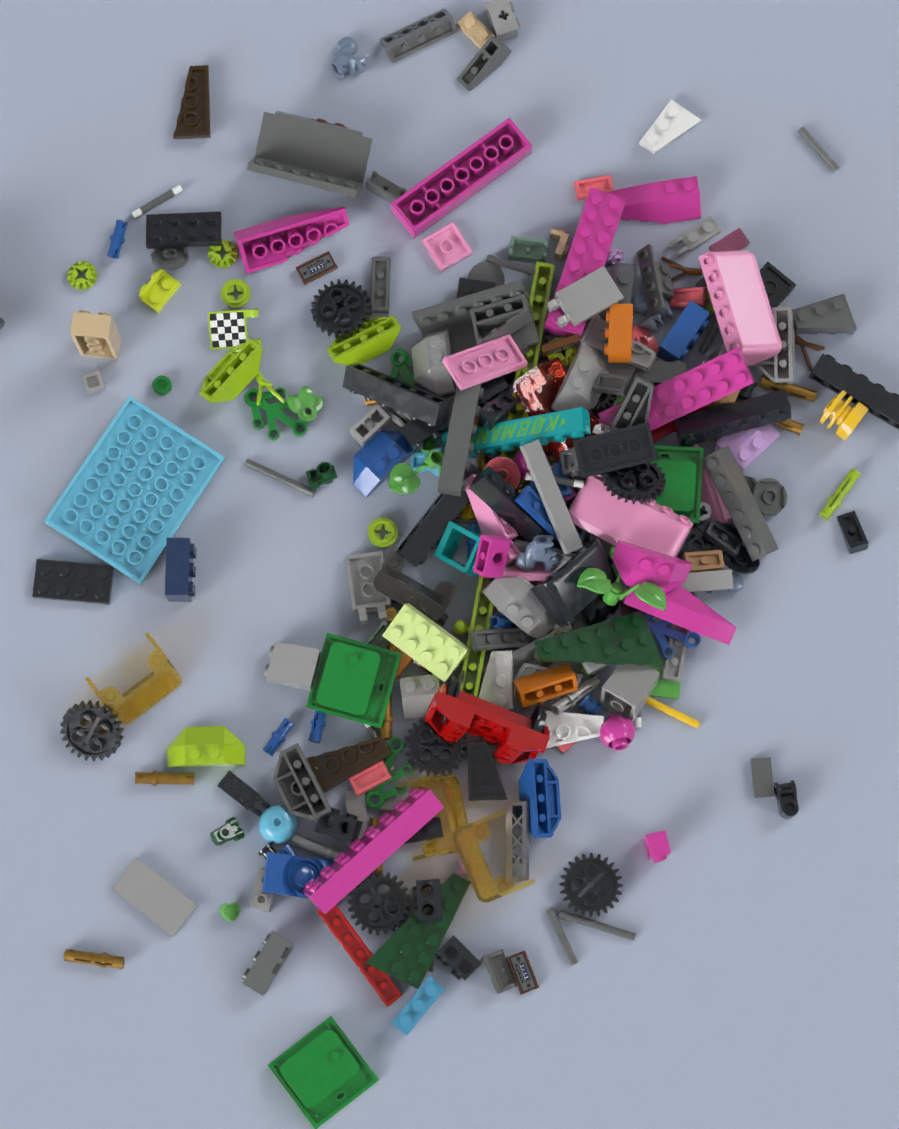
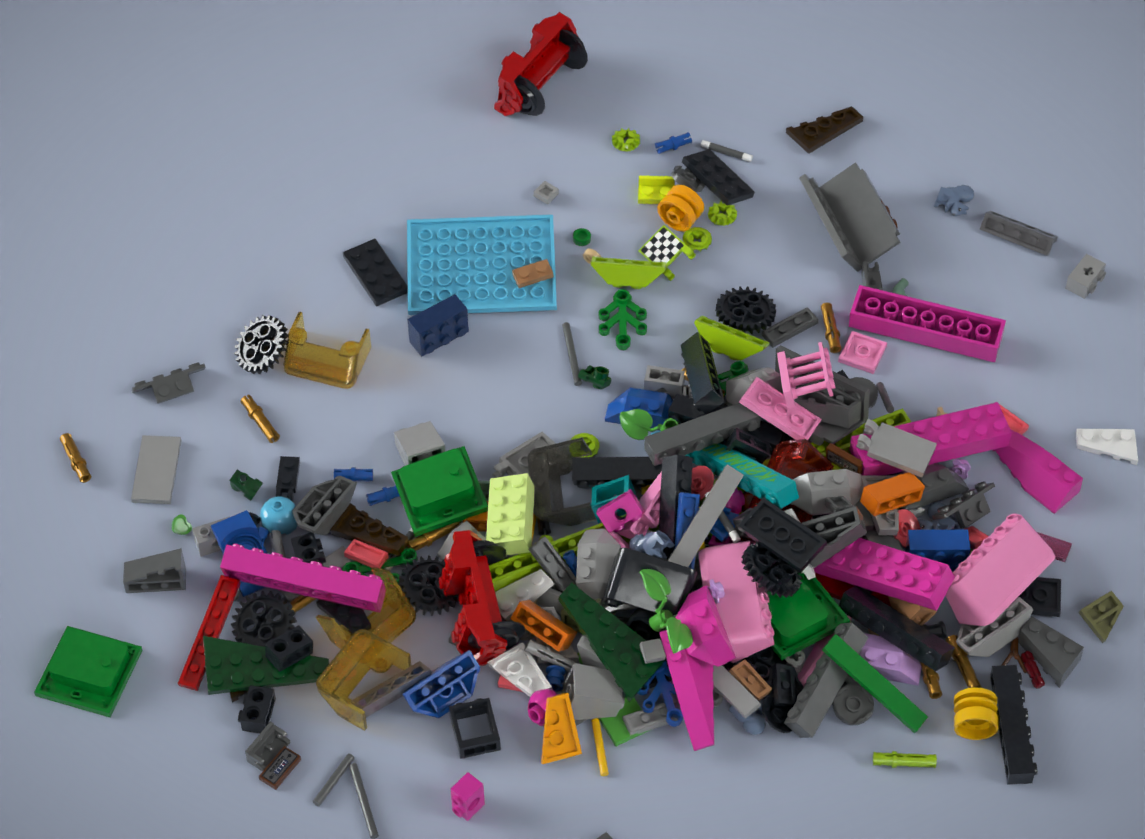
camera: 60 degrees right, 25 degrees down
(73, 831) = (172, 385): none -> dark grey bracket
(95, 334) = (580, 159): tan brick -> none
(180, 455) = (532, 273): none -> medium nougat plate
(192, 392) = (589, 253): none -> tan tile
(200, 286) = (680, 208): none -> light orange wheel
(205, 747) = (307, 433): lime wedge -> none
(265, 384) = (637, 296): lime plant -> none
(281, 238) = (771, 242): dark pink wedge -> none
(305, 401) = (647, 331): bright green plate -> none
(316, 268) = (765, 278): tile -> none
(407, 173) = (900, 286): none -> sand green arm
(407, 254) = (834, 343): none -> pearl gold pin
(418, 1005) = (194, 702): dark azure brick -> none
(469, 336) = (787, 374): none -> bright pink fence
(474, 29) = (1060, 267): tan plate -> none
(483, 776) = (431, 634): black wing -> none
(484, 63) = (1041, 285): dark grey slope -> none
(527, 249) = (910, 402): sand green hinge -> none
(569, 797) = (477, 745): none -> black window
(578, 871) = (395, 771): black gear -> none
(624, 535) = (716, 590): none -> lavender plate
(635, 619) = (652, 651): none -> light grey tile
(646, 736) = (560, 730): none -> light orange wing
(686, 270) = (994, 514): reddish brown plant -> none
(696, 236) = (1036, 517): light grey hinge -> none
(770, 470) = (875, 683): none -> green tile
(817, 255) = (1102, 614): none -> olive wing
(827, 342) = (1032, 669): none -> dark red axle
(852, 532) = (878, 793): black slope -> none

